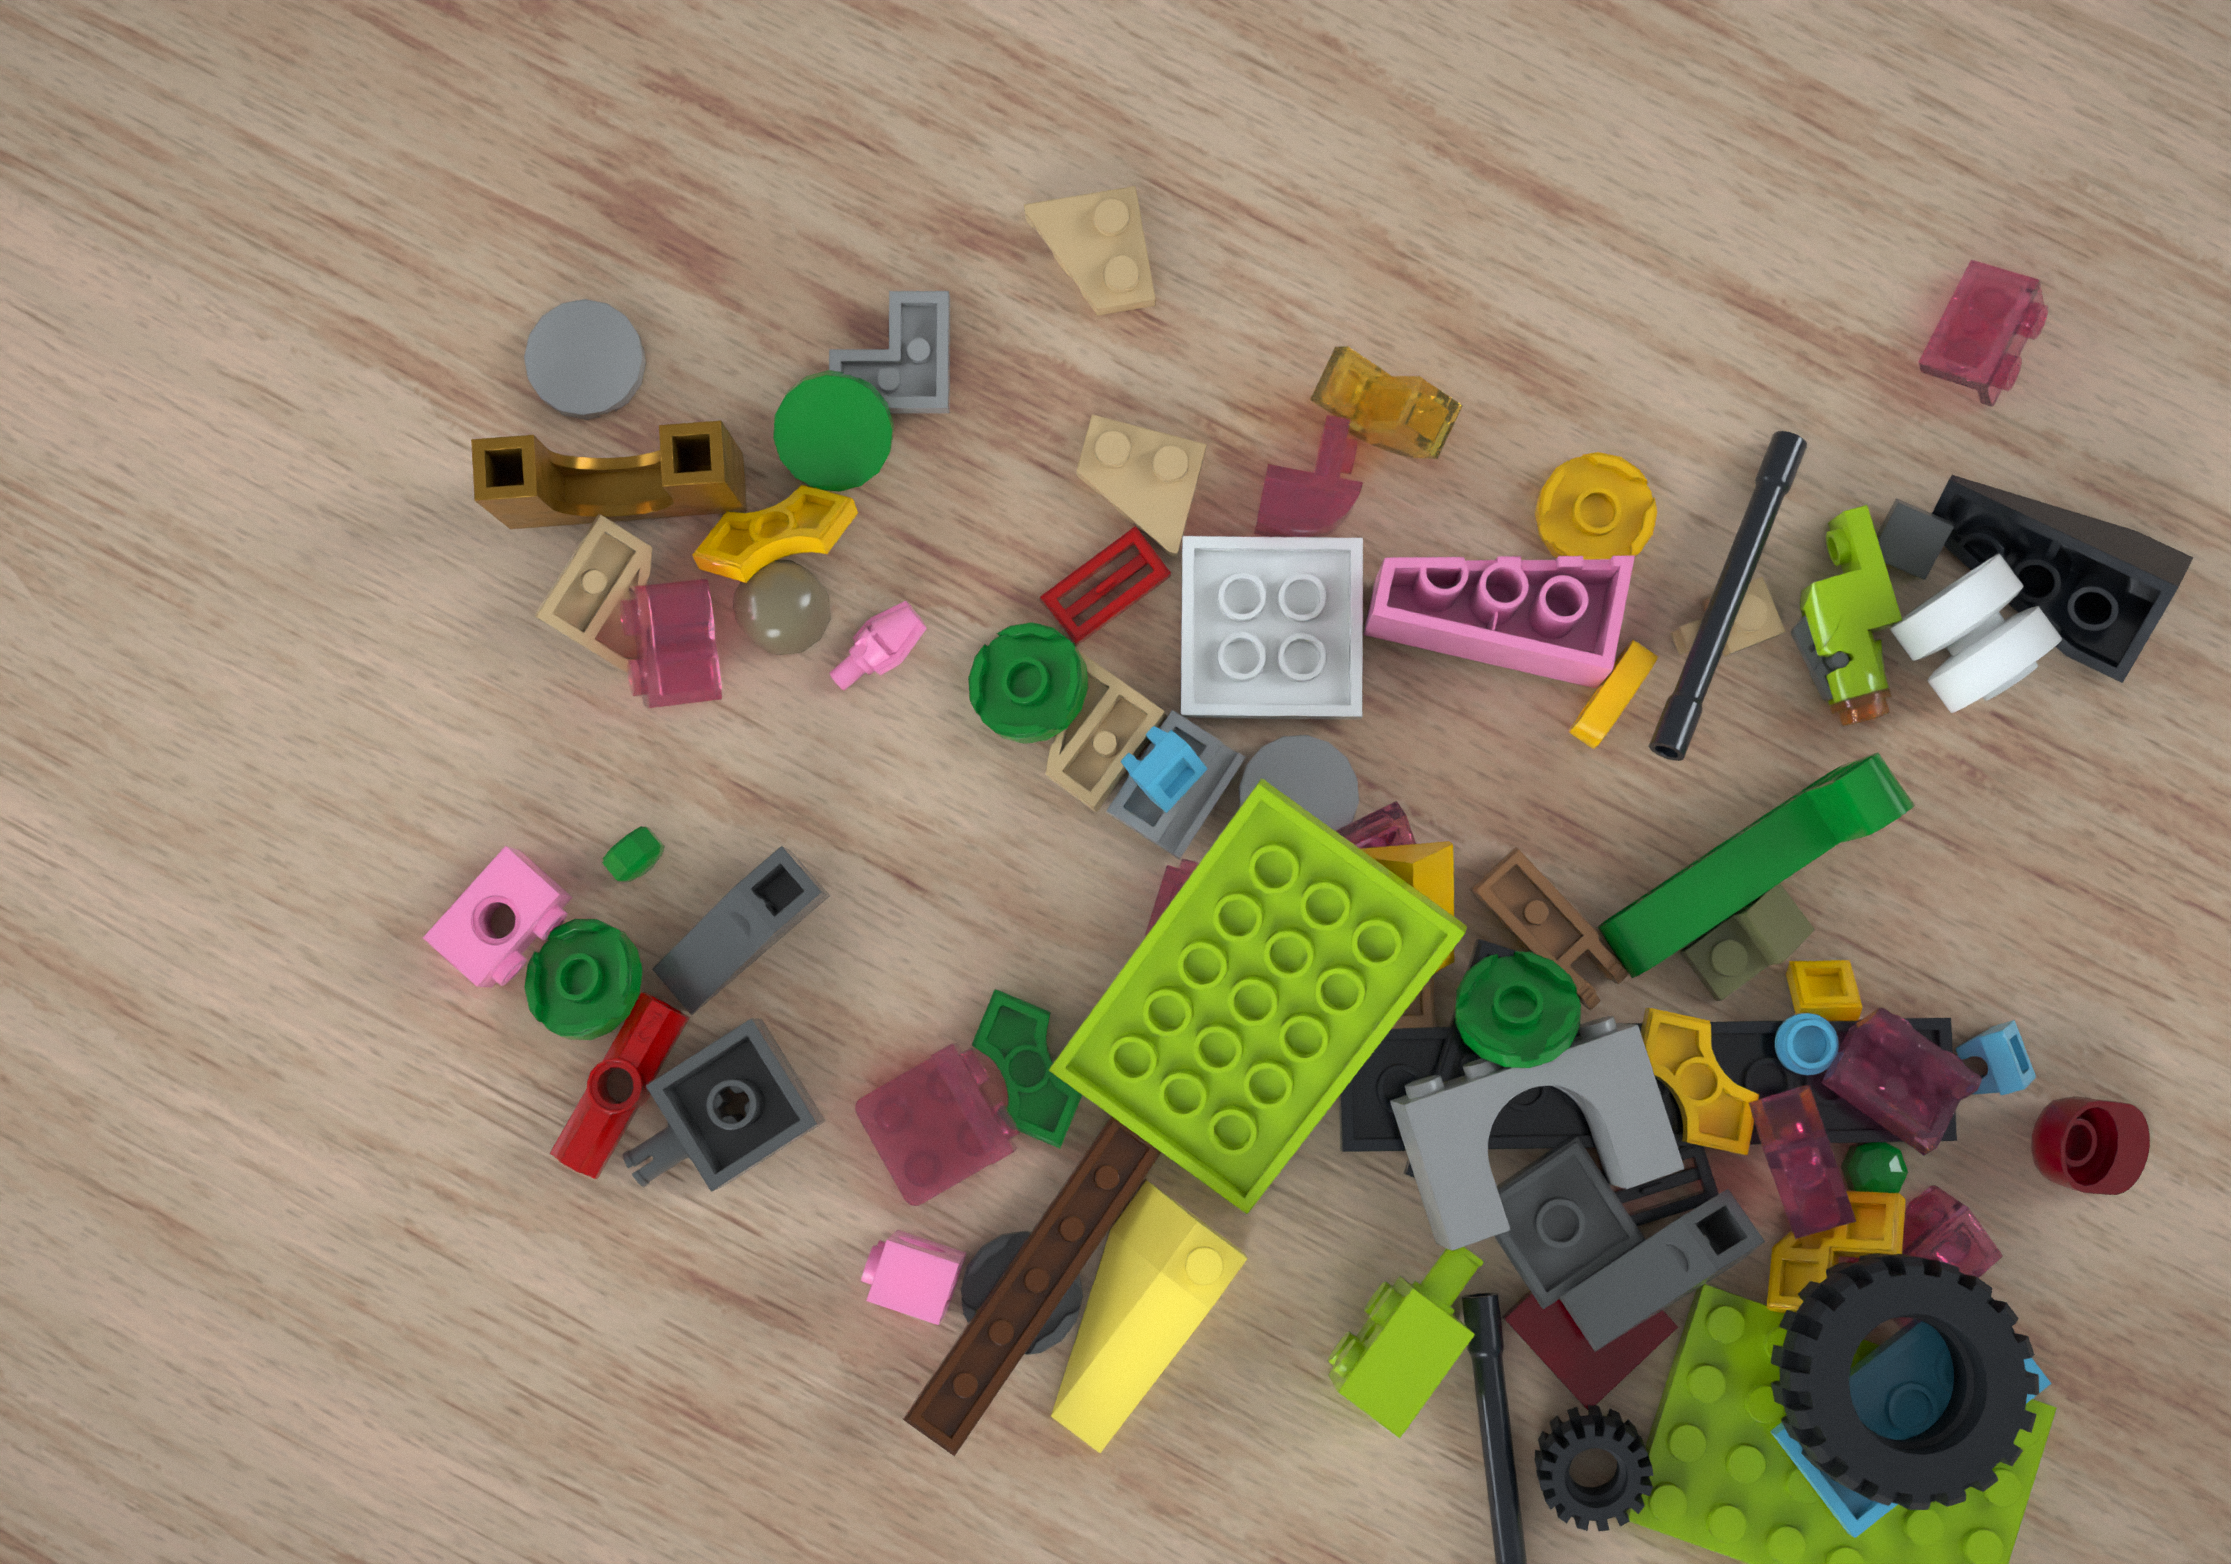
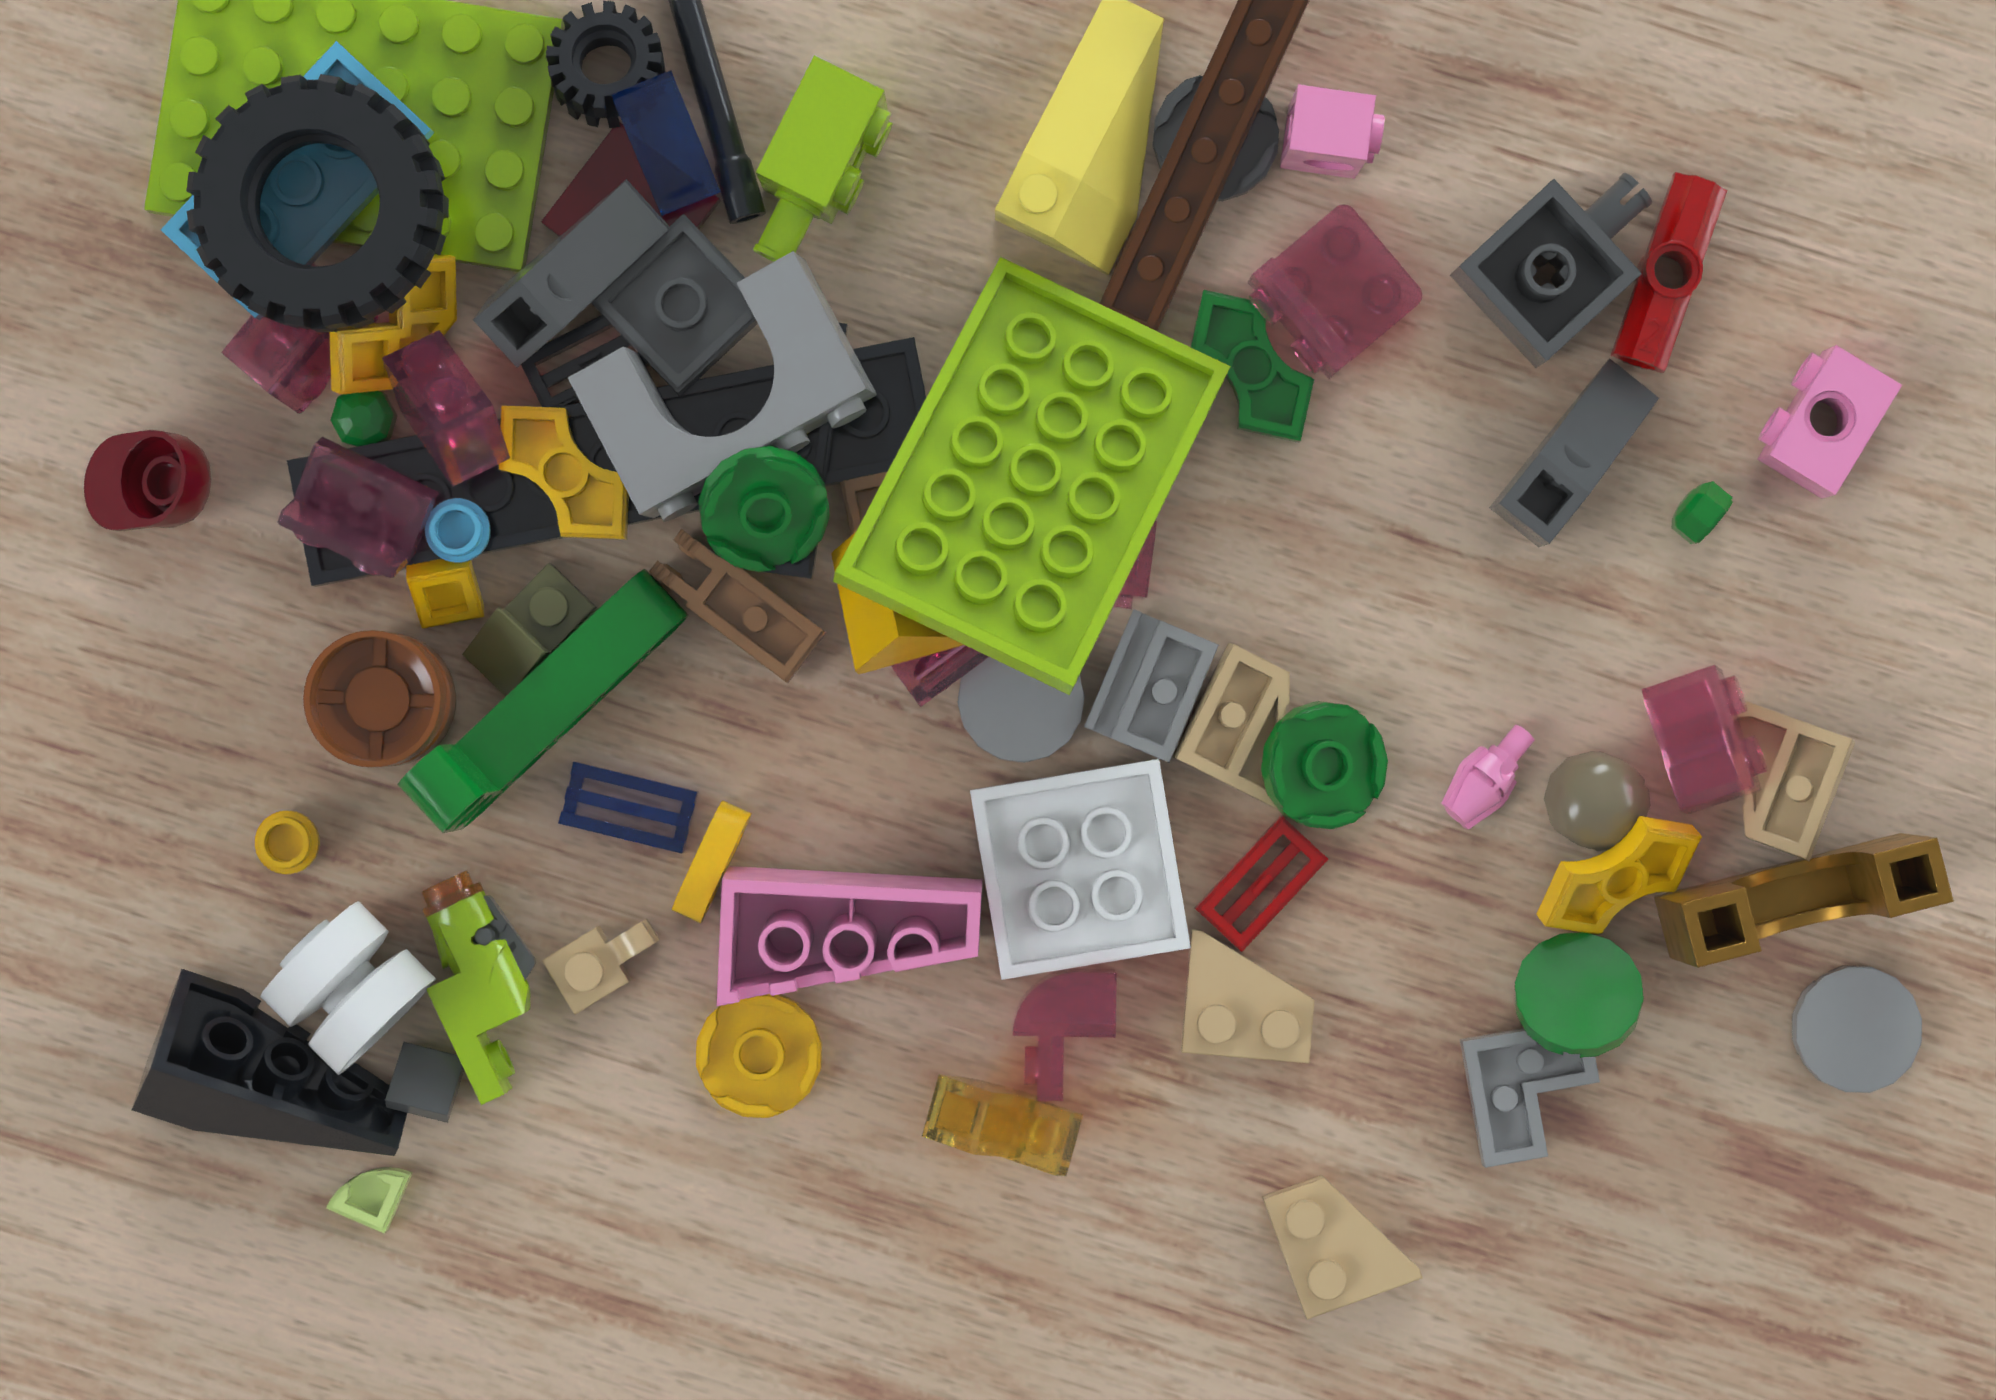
camera: 165 degrees right, 5 degrees up
(583, 979) = (1727, 374): green tile -> none
(1166, 770) = (1165, 694): medium azure tile -> none
(1550, 1380) = (666, 143): none -> clear blue tile
(1684, 706) = (639, 857): black piece -> none
(1728, 779) = (575, 794): none -> clear blue tile
(1906, 896) = (379, 699): none -> dark orange wheel
(1974, 445) = (371, 1197): none -> yellowish green tile
(1986, 330) = (379, 1320): clear pink bracket -> none
(2006, 783) = (287, 842): none -> yellow plate
(2006, 1059) = (248, 555): medium azure tile -> none

